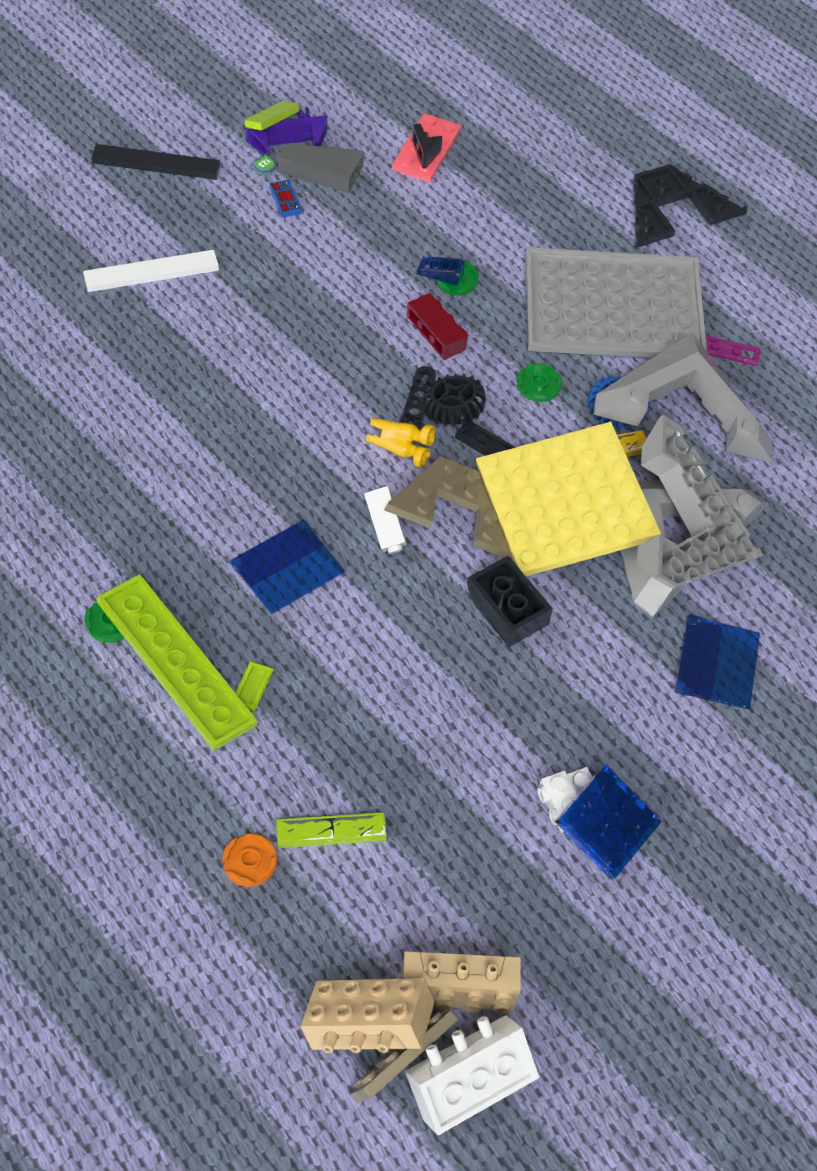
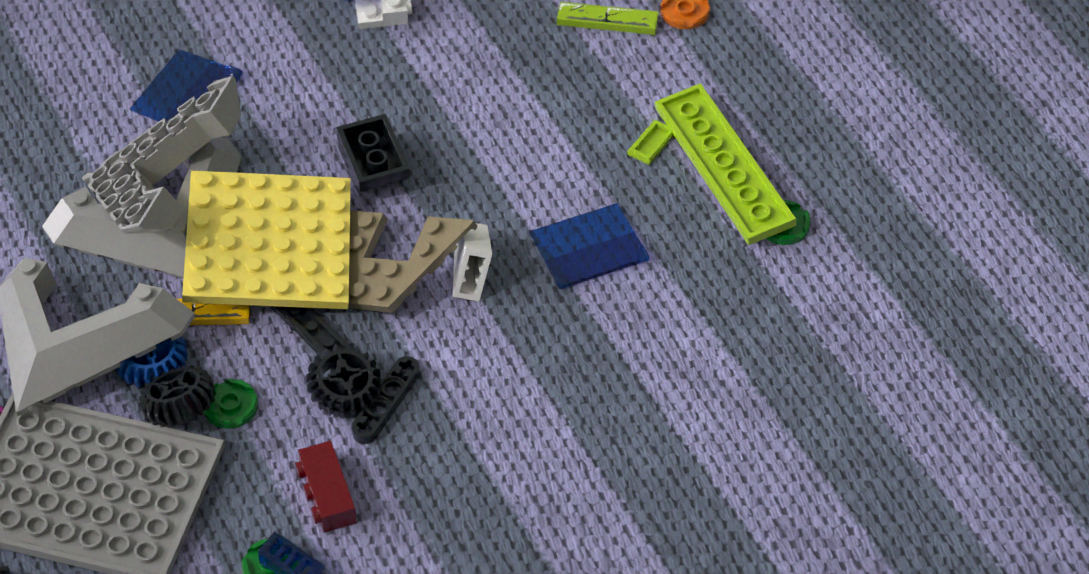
camera: 160 degrees left, 5 degrees down
(398, 437) = (421, 346): yellow piece -> none
(585, 360) = (177, 396): none -> black gear

